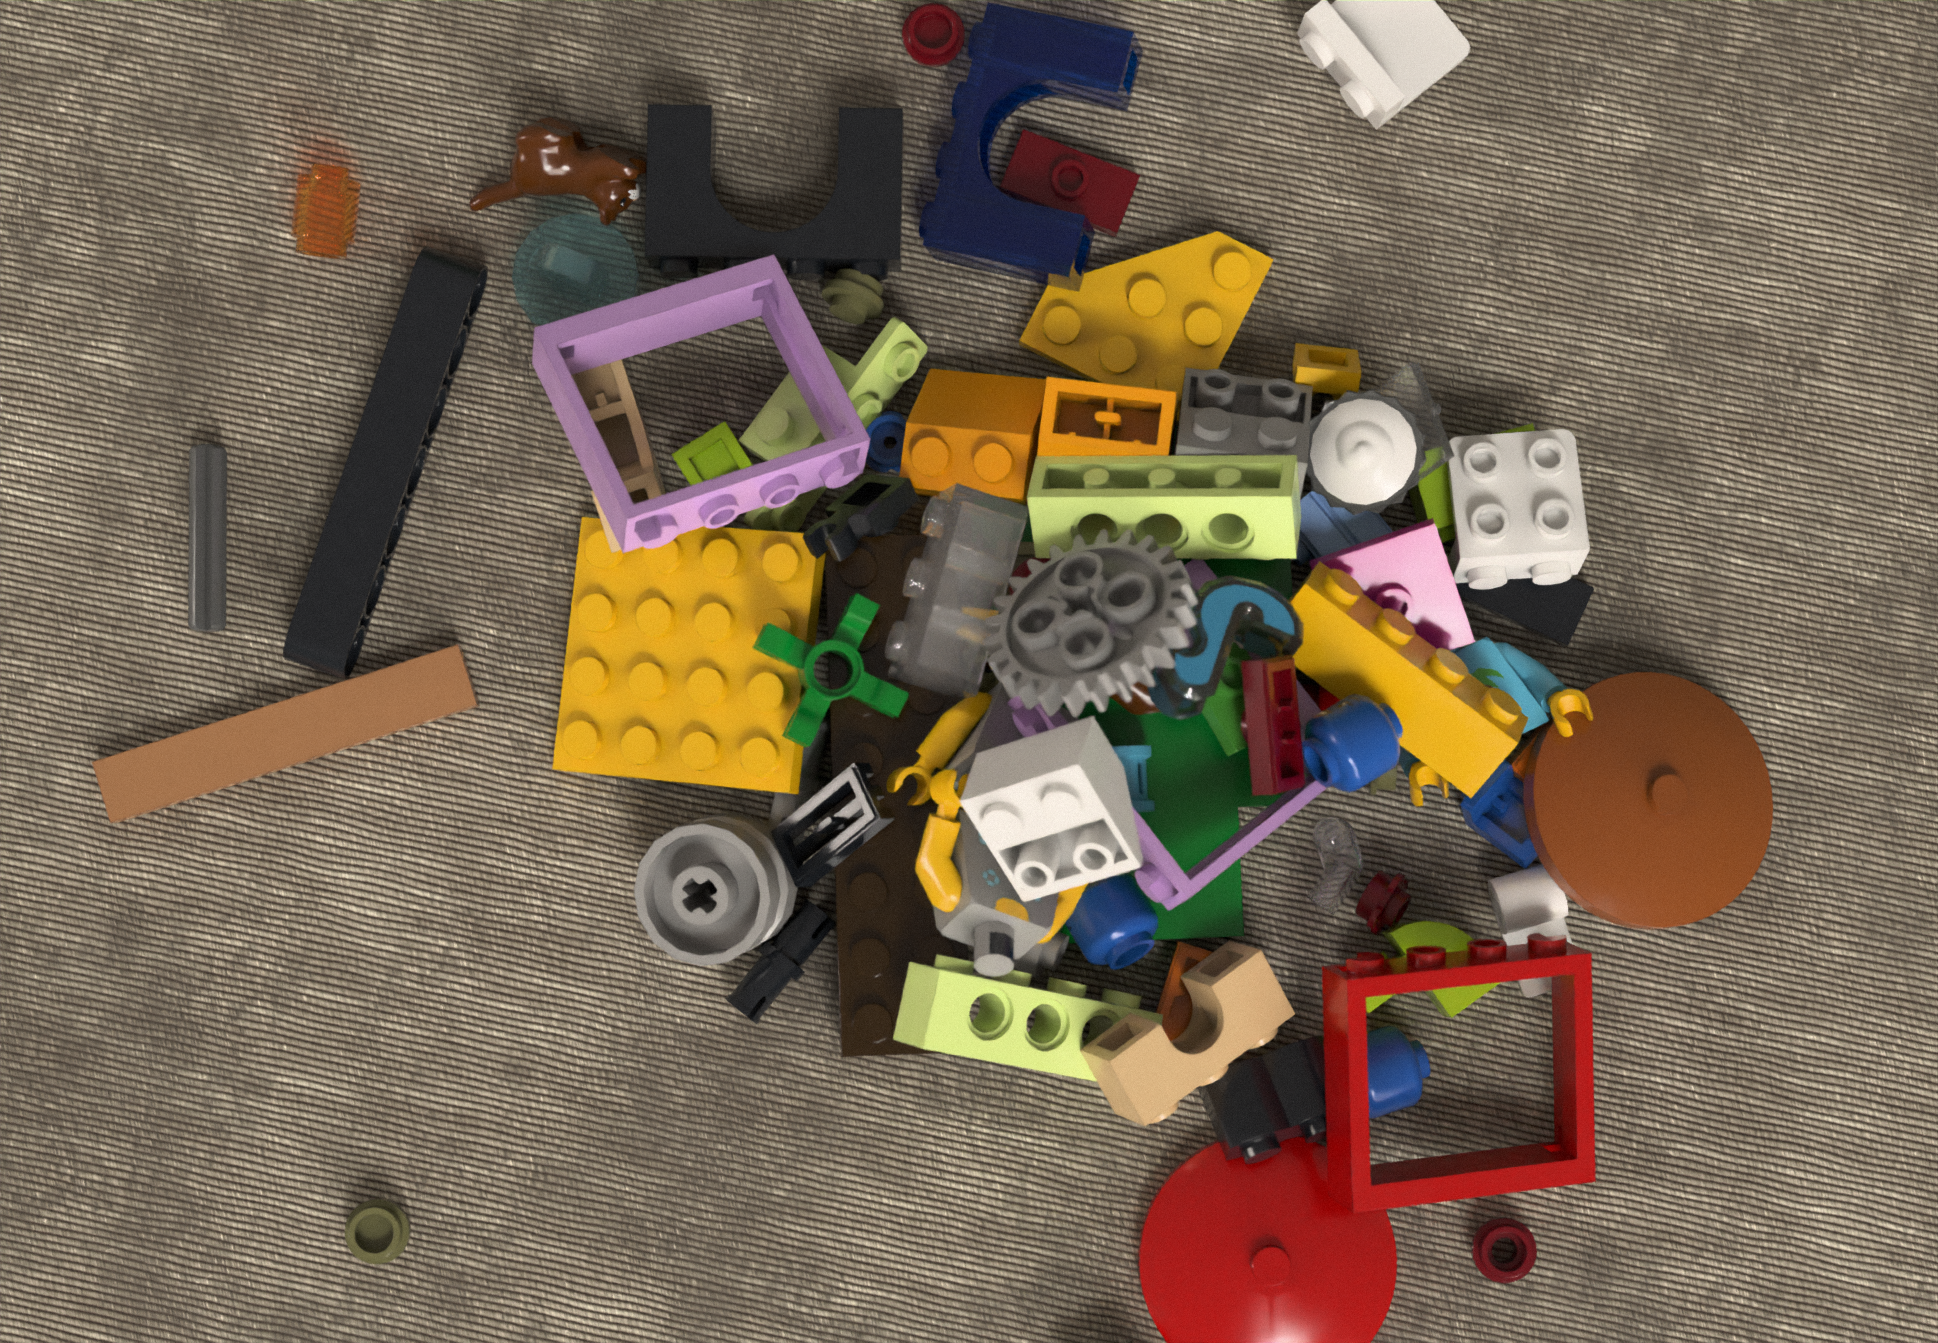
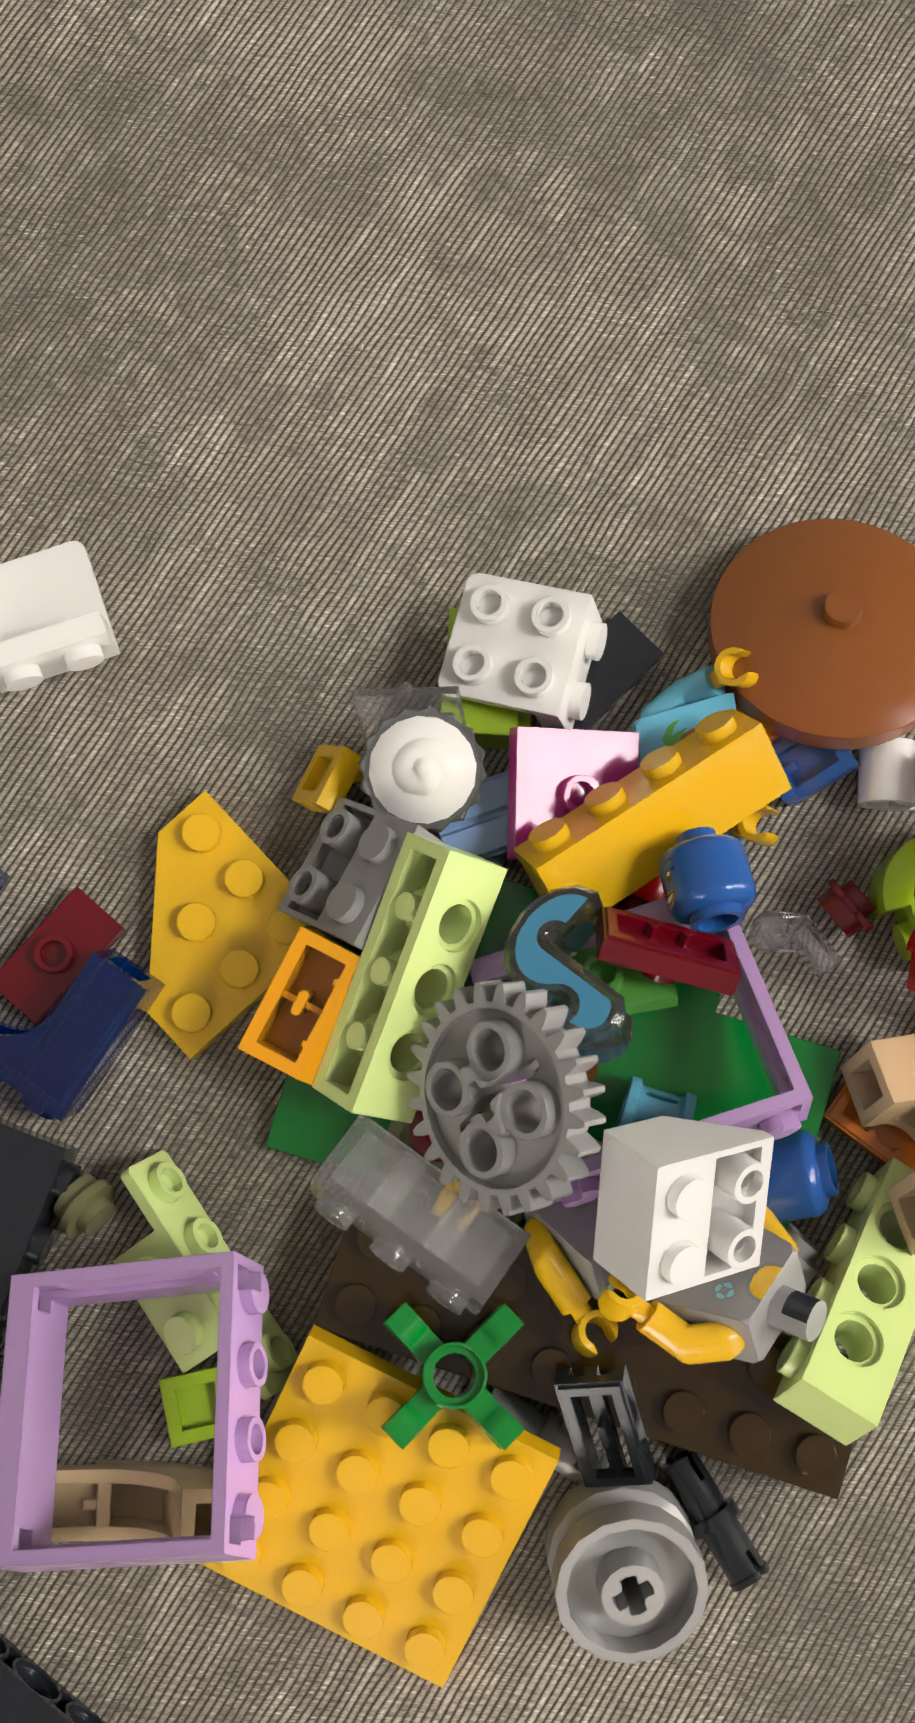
camera: 70 degrees left, 5 degrees down
(864, 509) = (301, 1276): black plate -> none
(878, 456) = (259, 1216): blue plate -> none
(973, 434) = (265, 1140): light orange slope -> none

